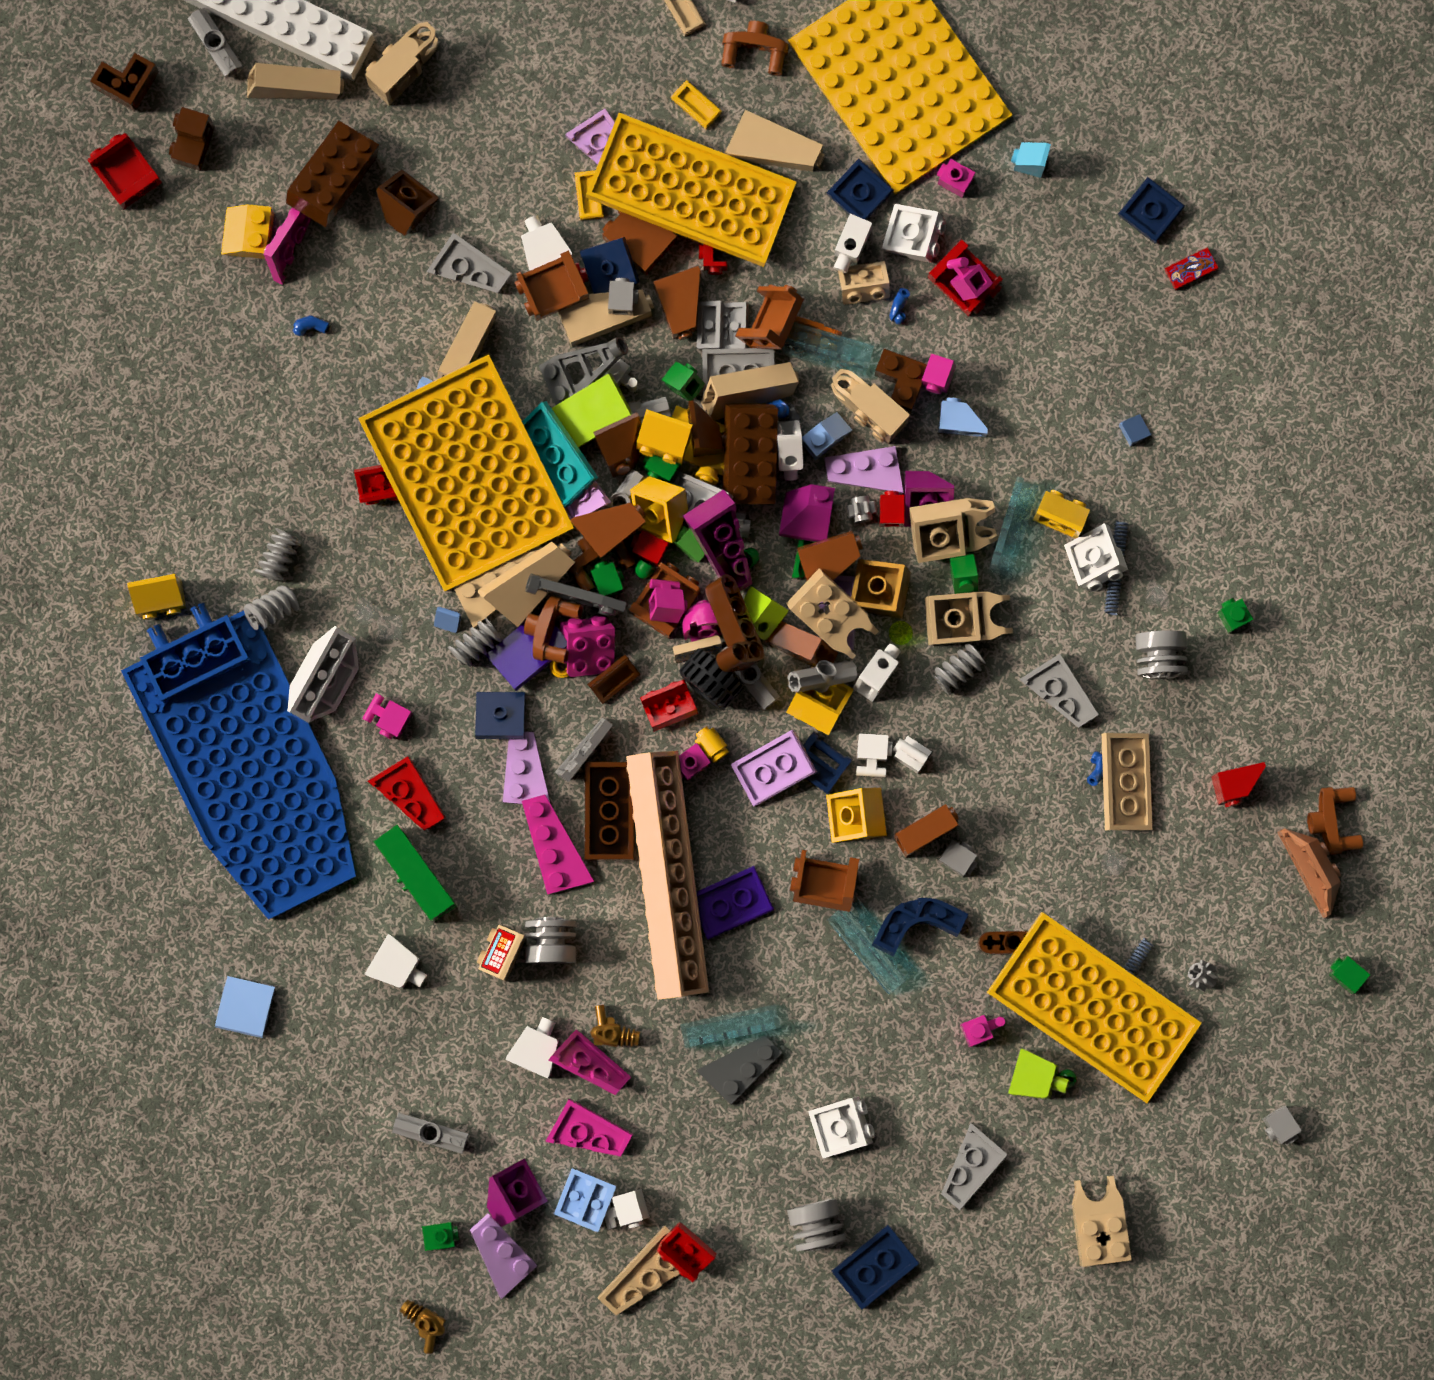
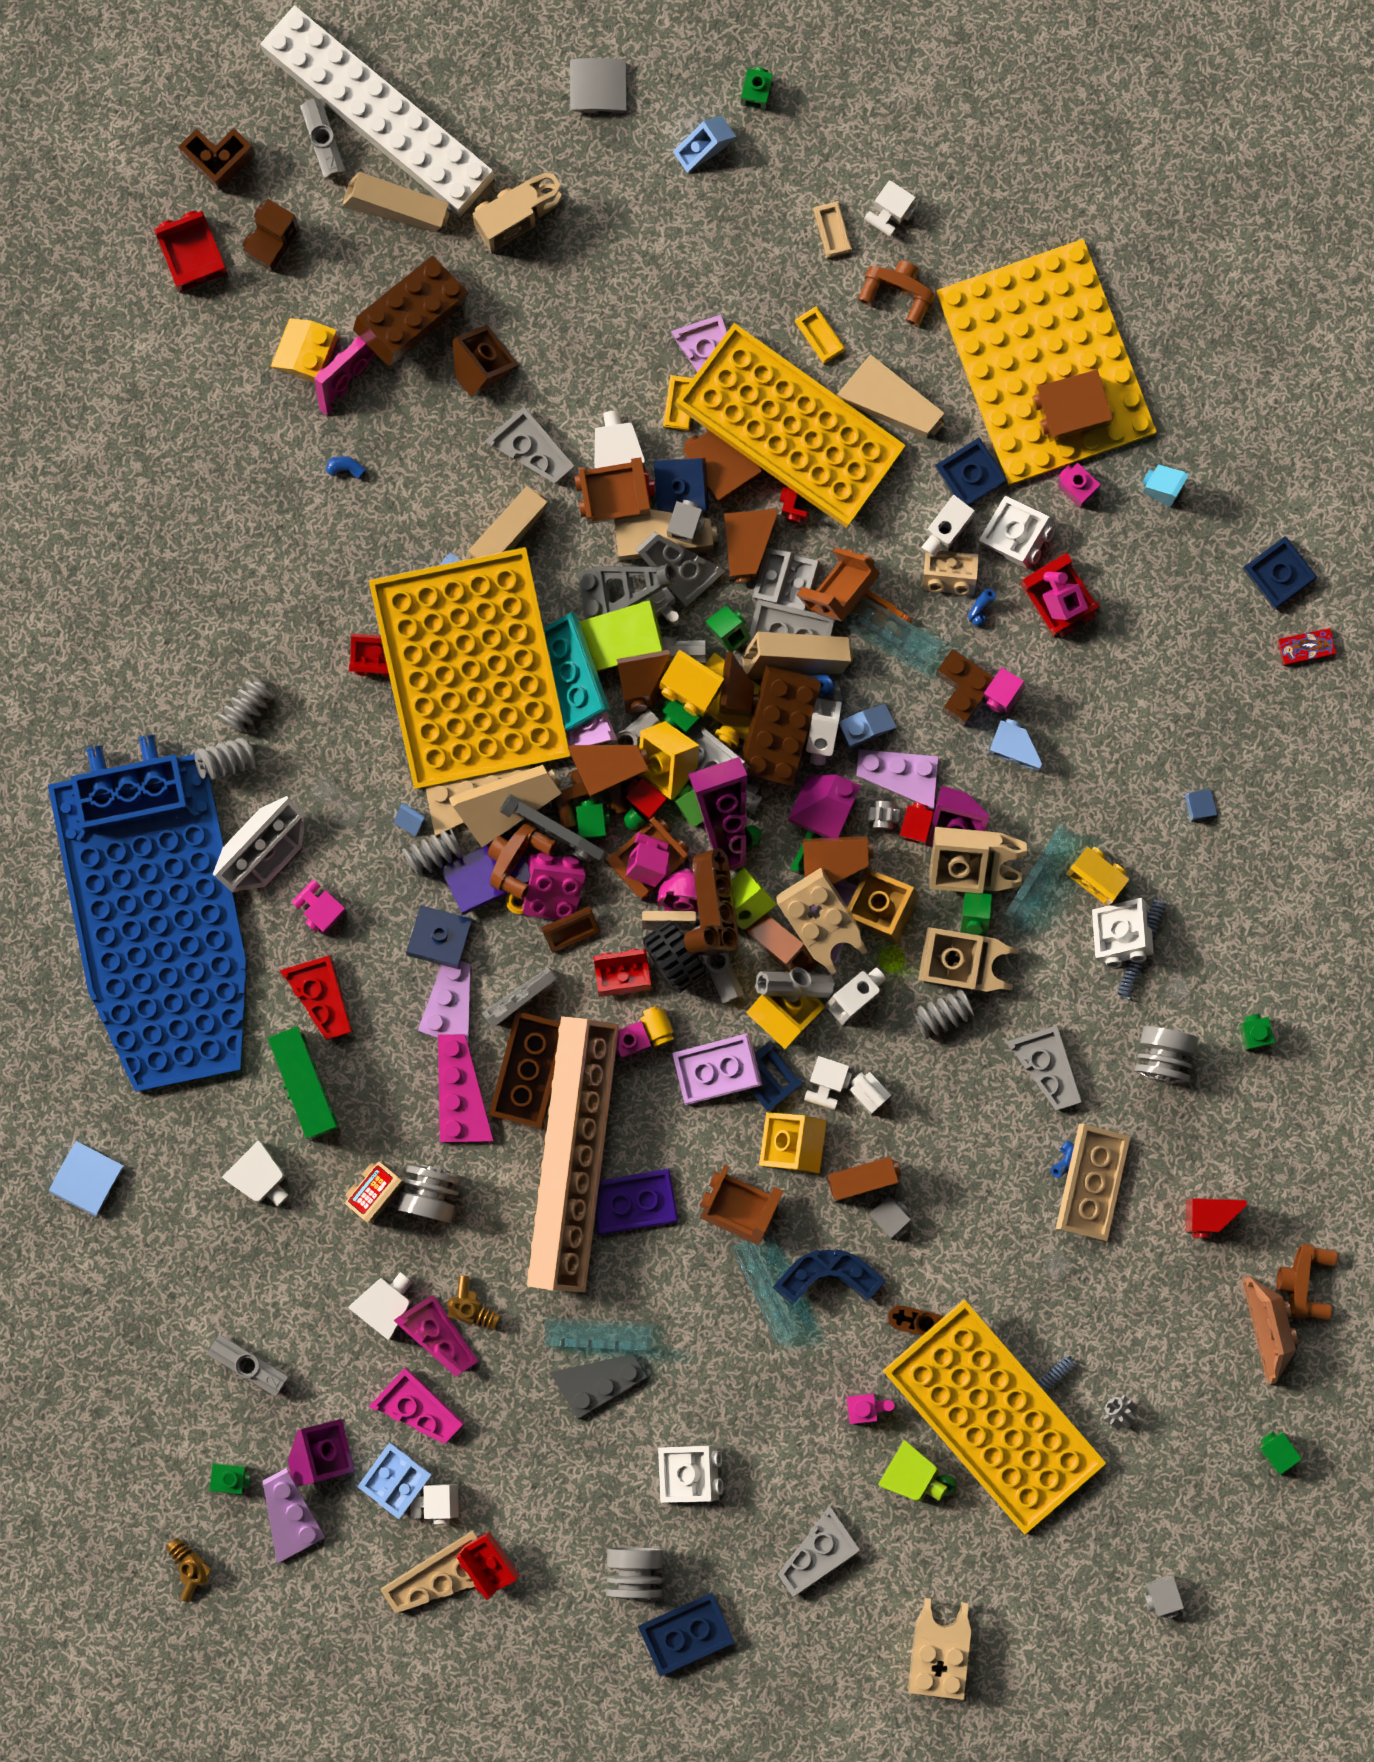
camera: 15 degrees right, 0 degrees up
(157, 596) = (106, 715): yellow slope -> none
(640, 338) = (692, 570): none -> light grey wing
(870, 406) = (922, 707): tan brick -> none
(933, 110) = (1072, 406): none -> dark orange brick

